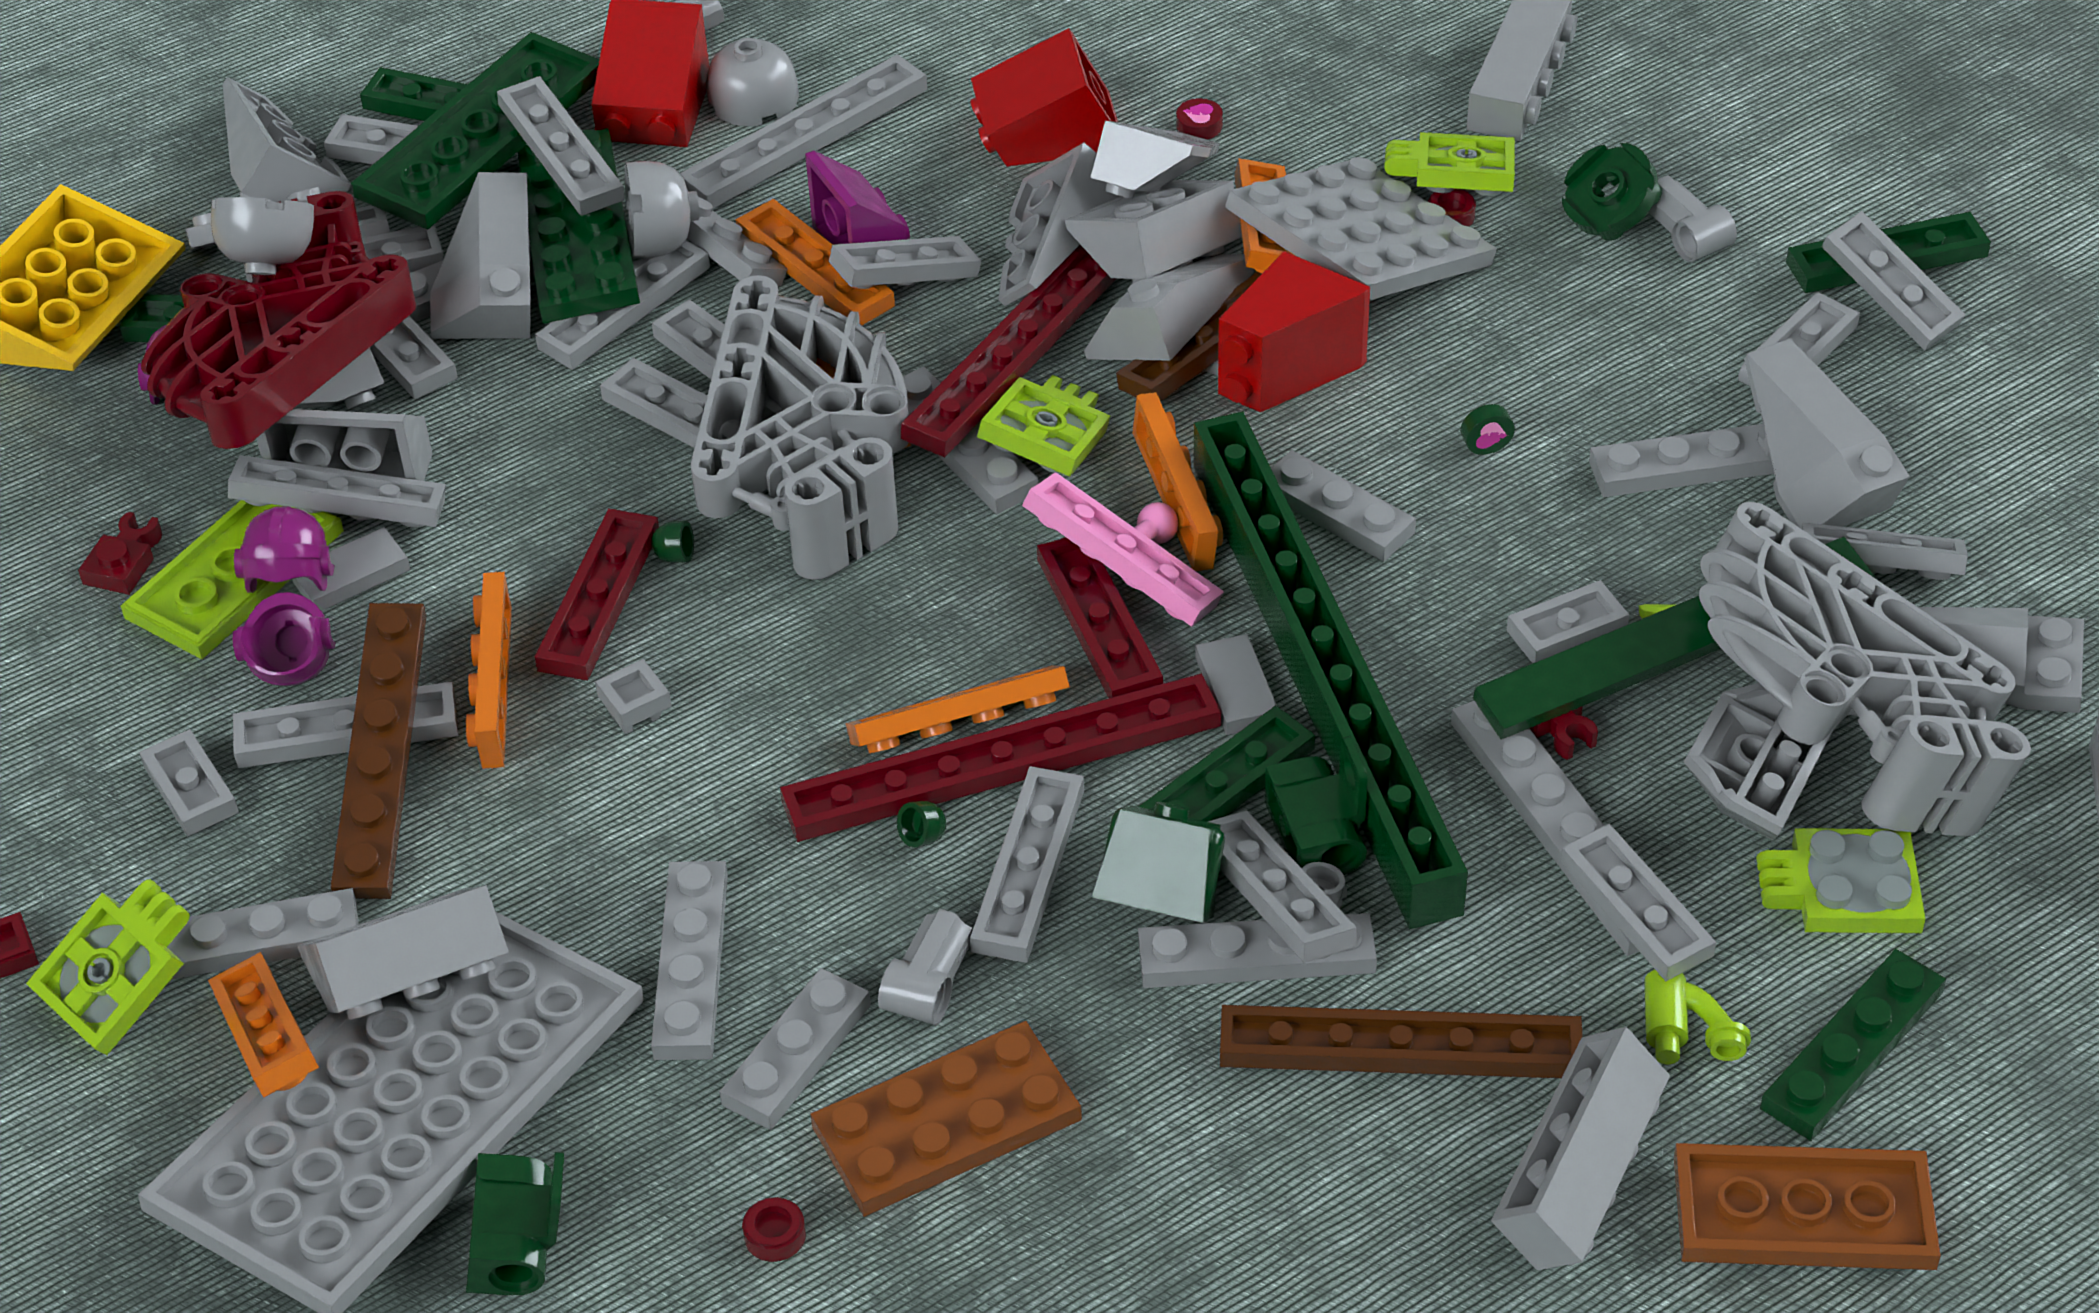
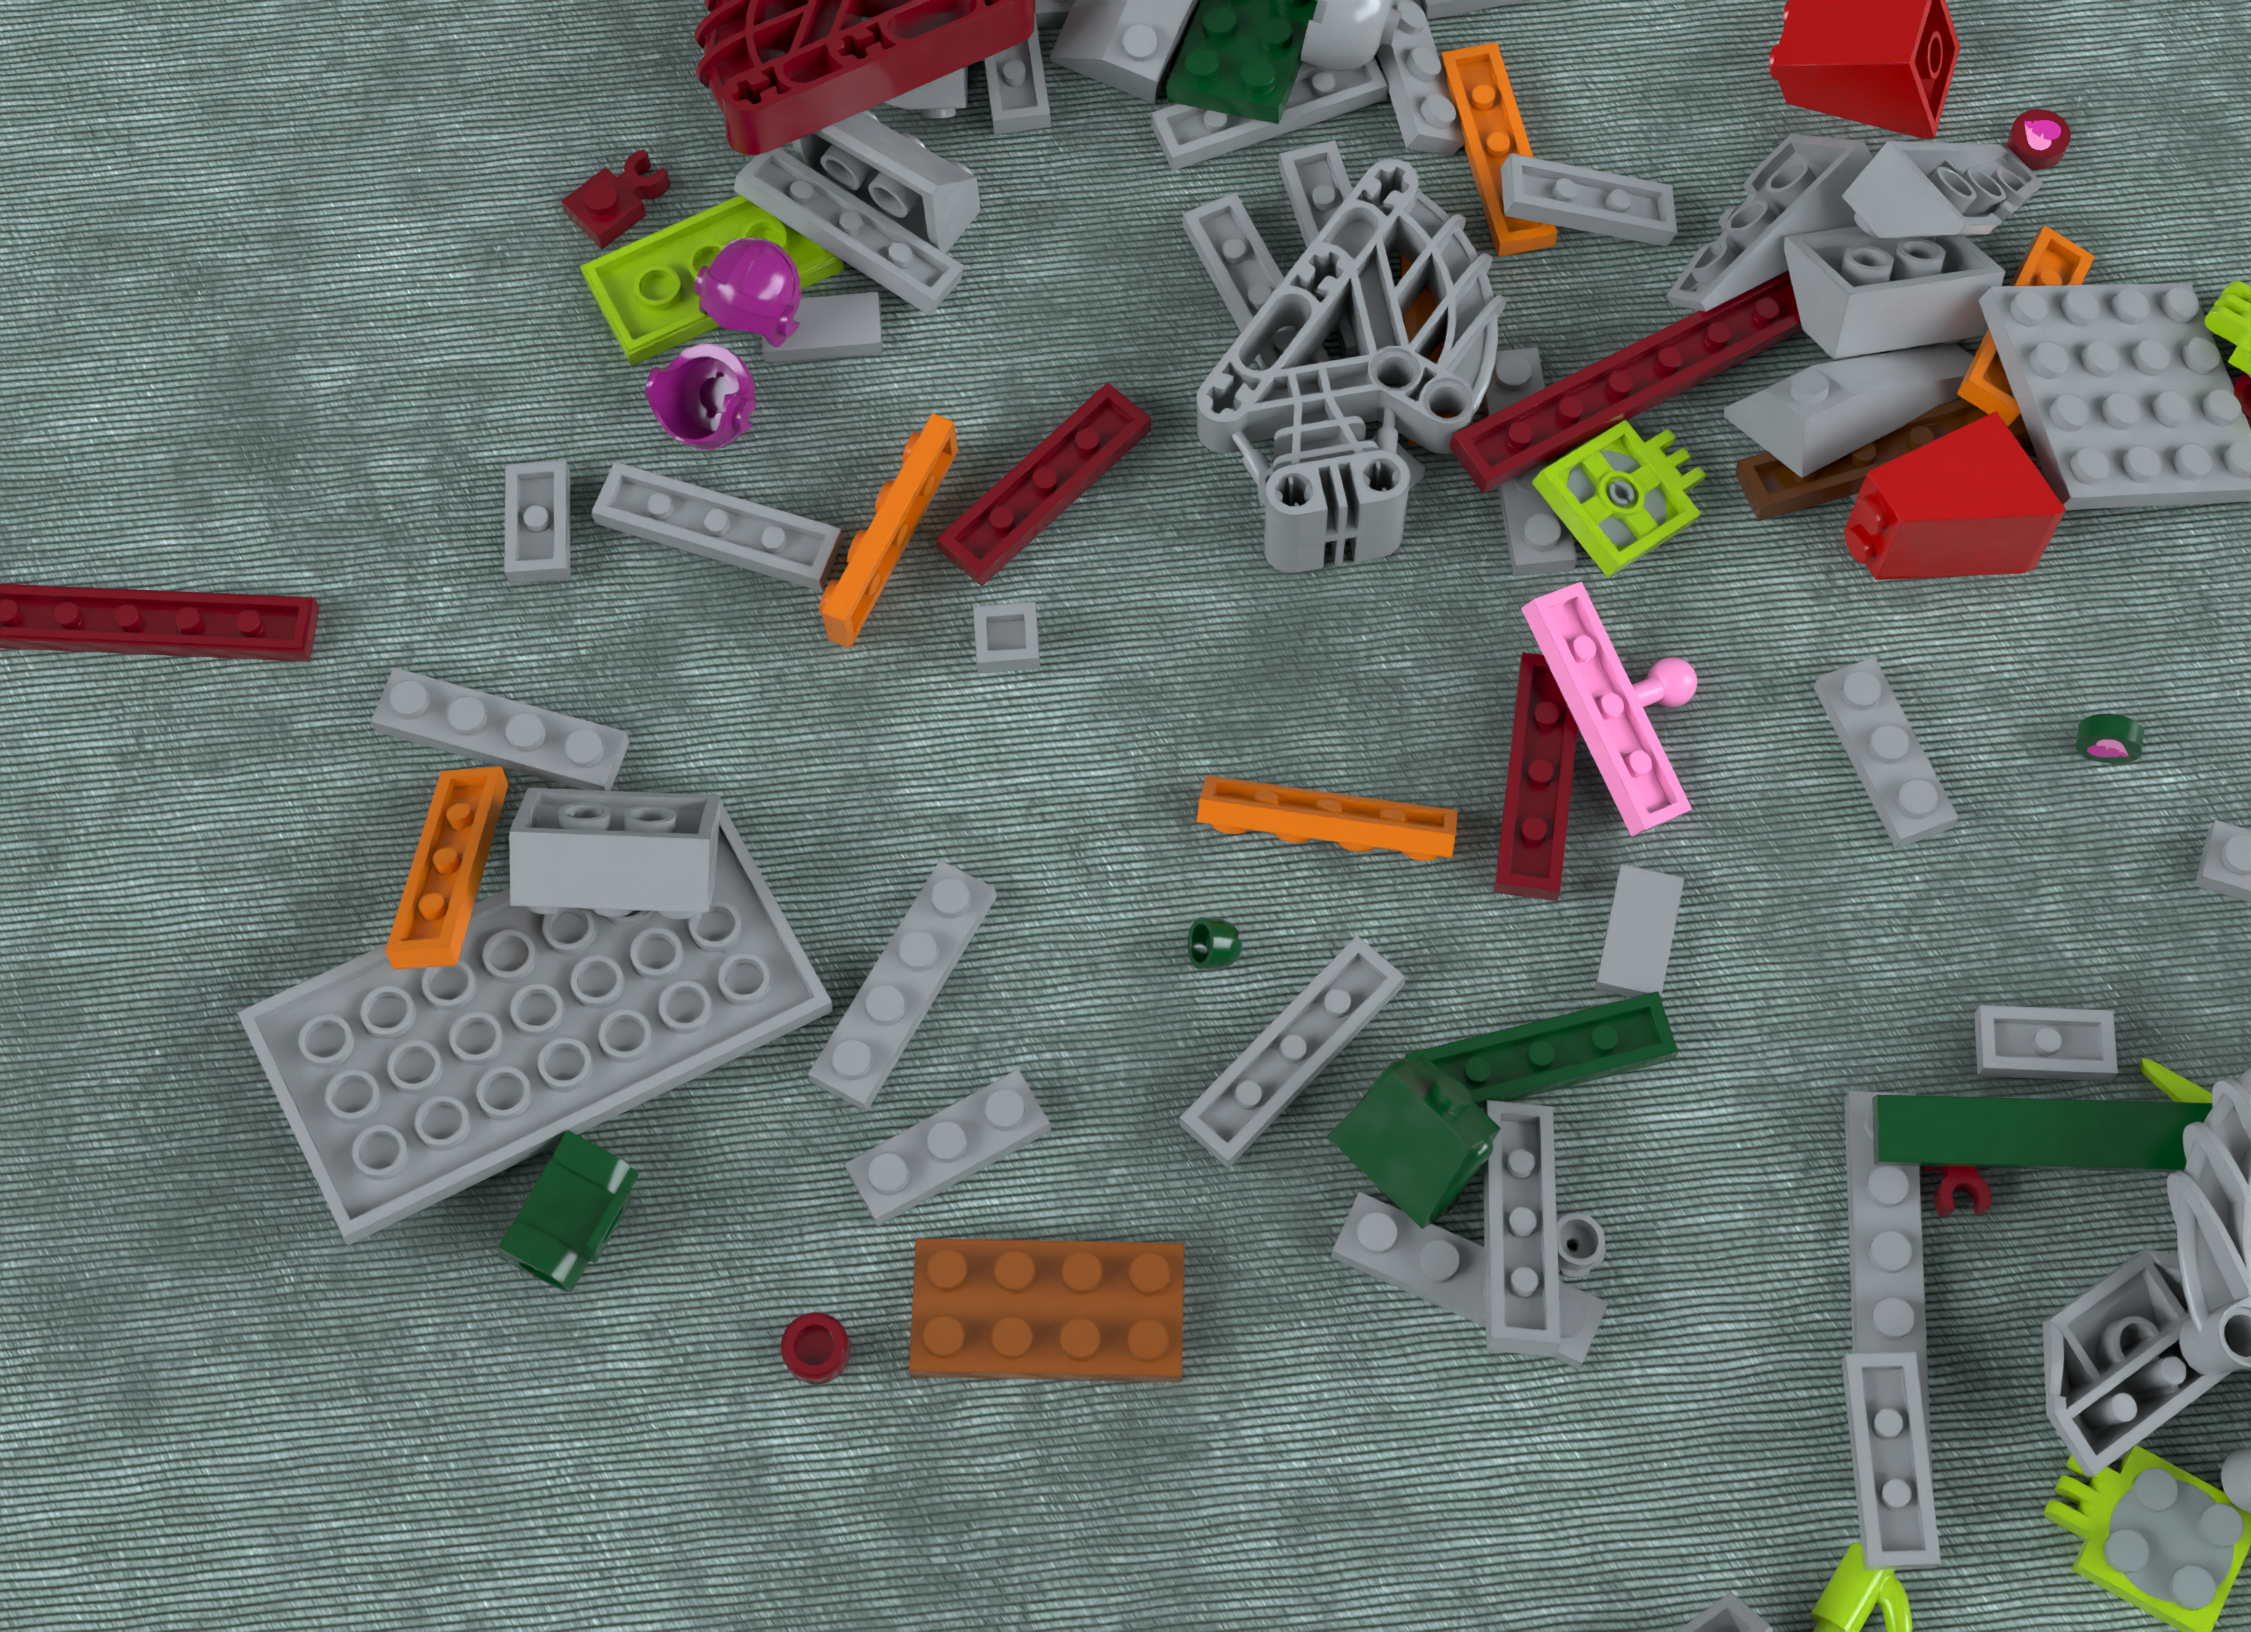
camera: 30 degrees right, 20 degrees up
(112, 964) = (355, 715): lime piece -> none
(379, 750) = (728, 580): reddish brown plate -> none
(674, 542) = (1156, 454): dark green hinge -> none
(847, 206) = (1571, 102): magenta slope -> none
(923, 979) = (1105, 1140): light grey piece -> none
(1000, 756) = (1342, 903): dark red plate -> none
(1175, 482) = (1718, 661): orange plate -> none
(1320, 811) = (1623, 1153): dark green piece -> none
(1330, 670) = (1737, 977): dark green brick -> none
(1398, 1041) = (1549, 1479): reddish brown plate -> none

